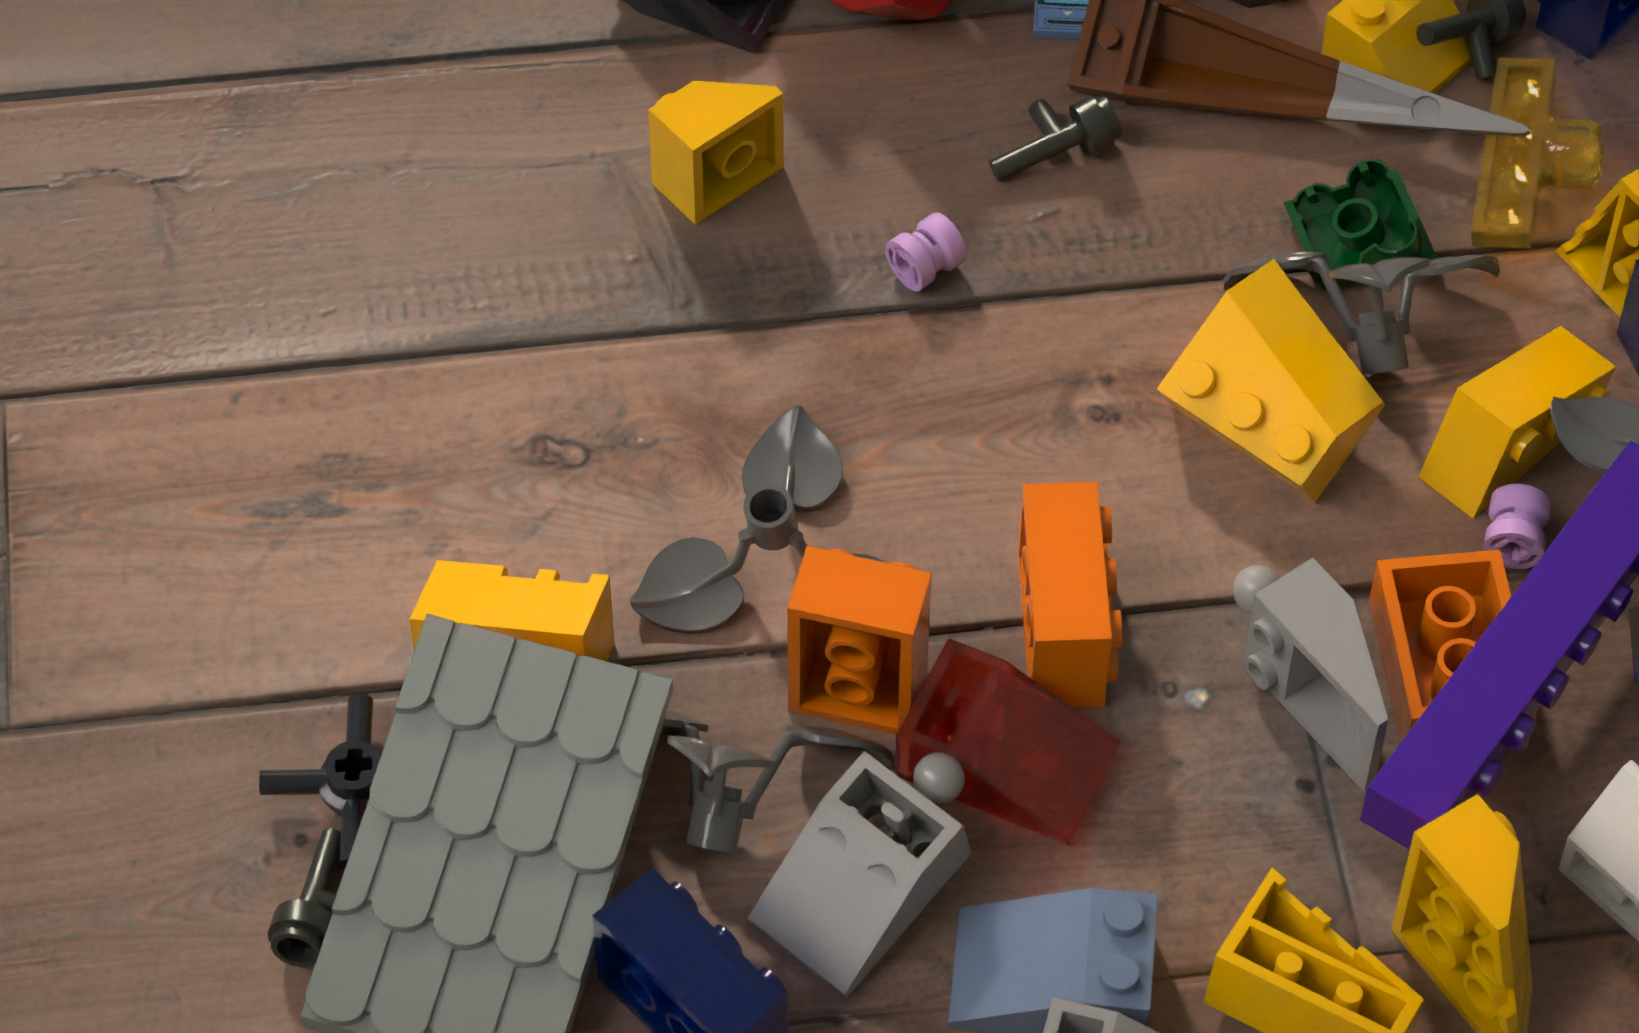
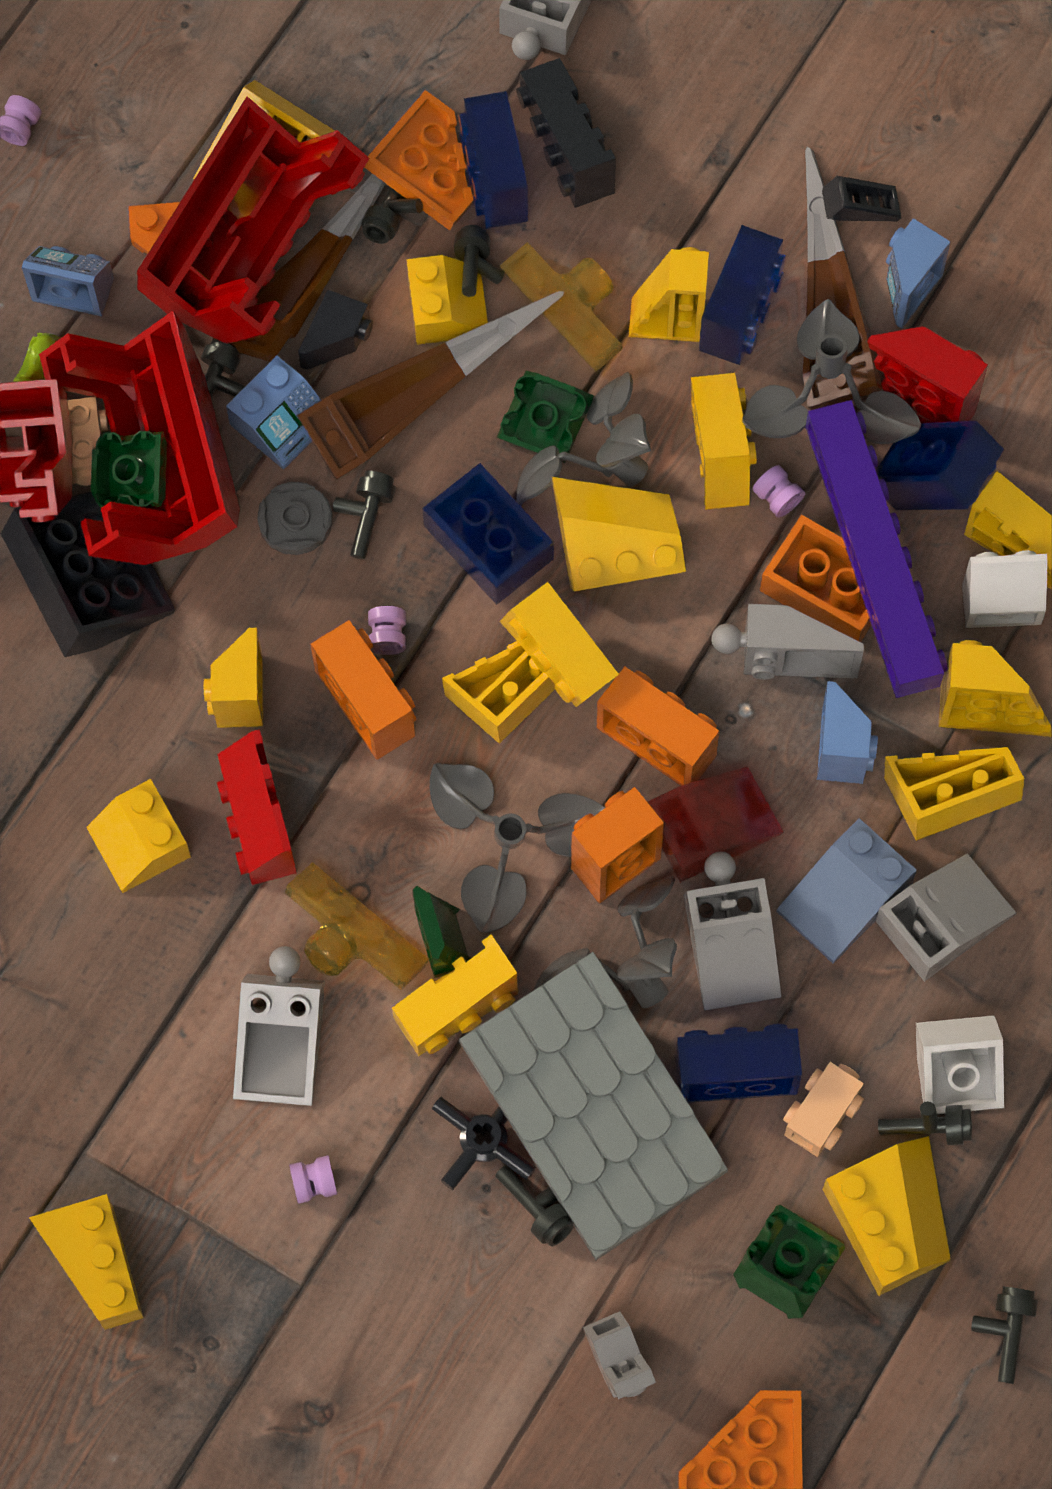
camera: 50 degrees left, 15 degrees up
(145, 633) = (313, 1179): none -> lavender wheel
(292, 485) = (274, 1042): none -> light grey slope
(444, 189) = (138, 836): none -> yellow slope
(507, 467) = (350, 931): none -> clear yellow plate
(572, 263) = (255, 811): none -> red wedge
(584, 532) = (439, 931): none -> dark green slope
(821, 267) = (364, 688): none -> orange brick
(981, 83) = (295, 518): none -> dark grey tile
(982, 413) = (499, 690): none -> yellow wedge
(1051, 387) = (559, 645): none -> yellow wedge
(1144, 262) = (488, 533): none -> clear blue brick
(1243, 806) = (845, 739): none -> medium blue slope

